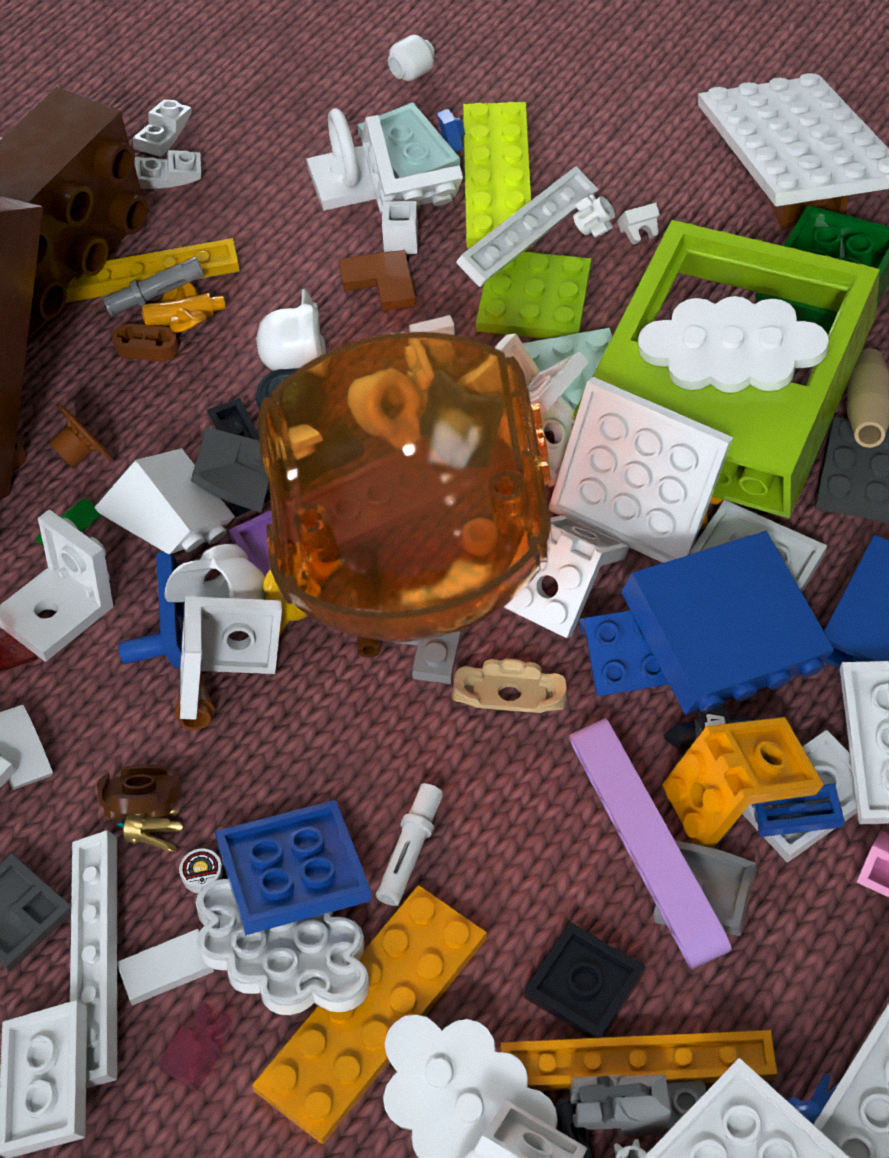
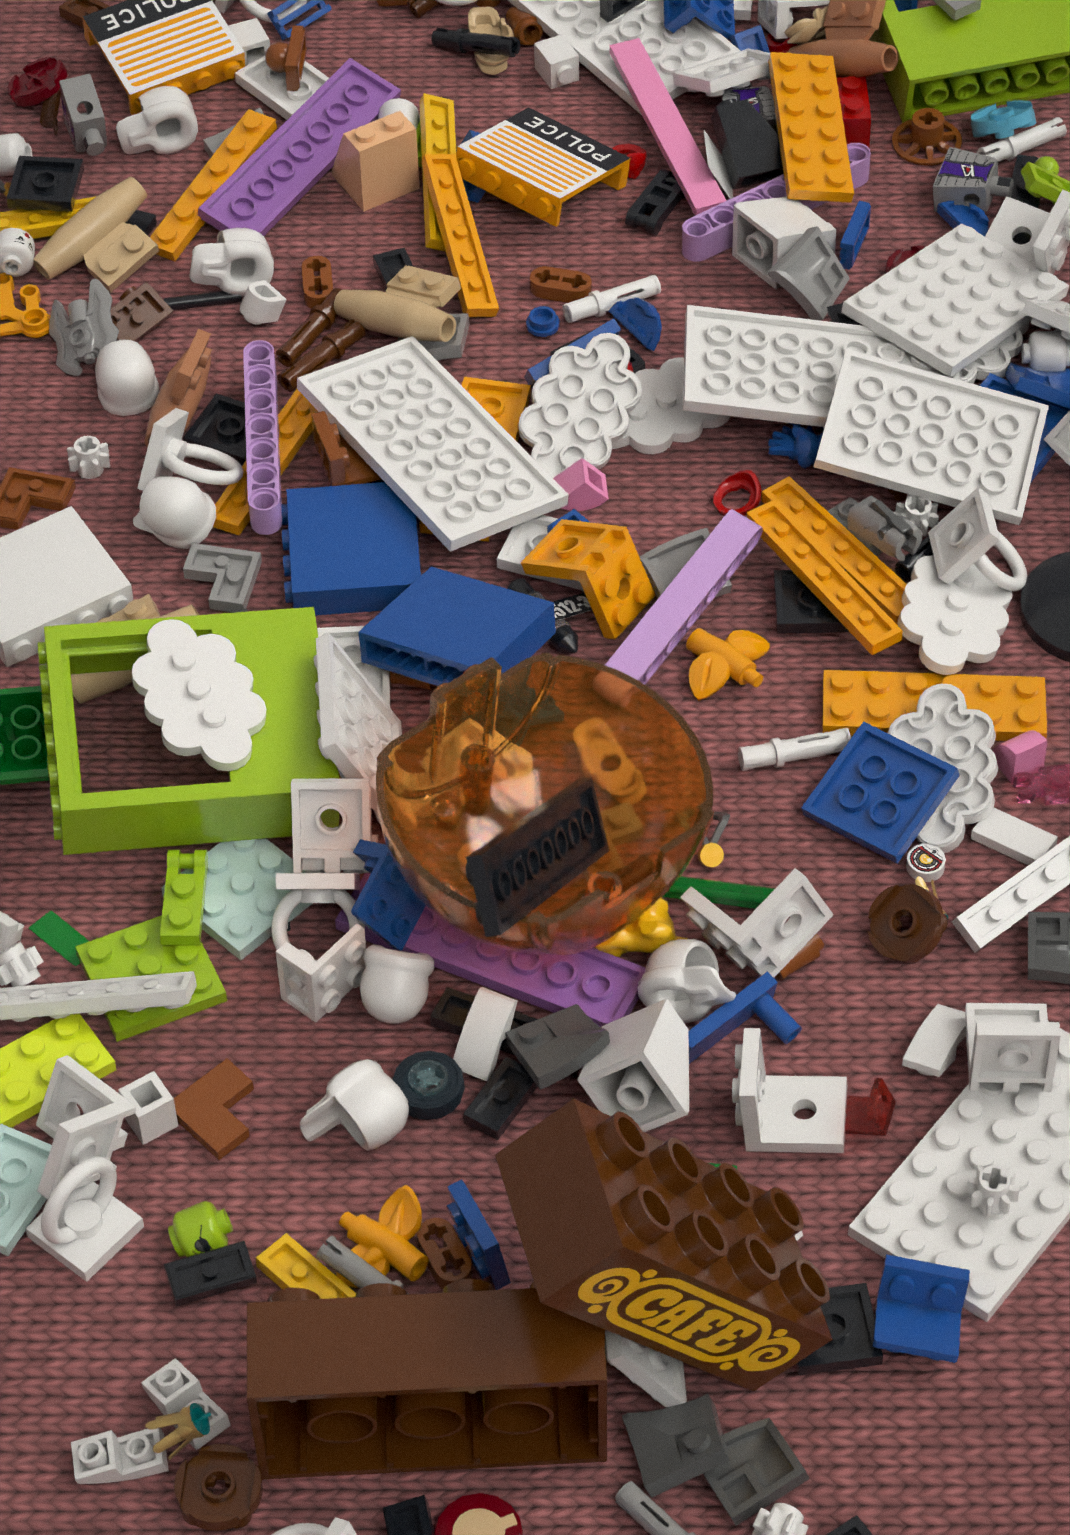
camera: 125 degrees left, 5 degrees down
(123, 343) = (477, 1235): none -> blue plate
(141, 146) = (191, 1423): none -> pearl gold piece
(245, 1035) = (1021, 754): none -> bright pink brick
(246, 215) = (210, 1273): none -> black plate
(280, 217) = (199, 1229): none -> lime head
(290, 699) = (721, 892): none -> green axle
(346, 448) = (536, 856): none -> black plate
(350, 703) = (710, 852): none -> piece
(562, 856) = (723, 660): none -> light orange plant
(573, 321) = (184, 898): none -> lime plate
(594, 991) = (825, 578): none -> light orange plate
(616, 266) = (59, 936): none -> green sticker
(792, 1036) = (743, 479): none -> red piece

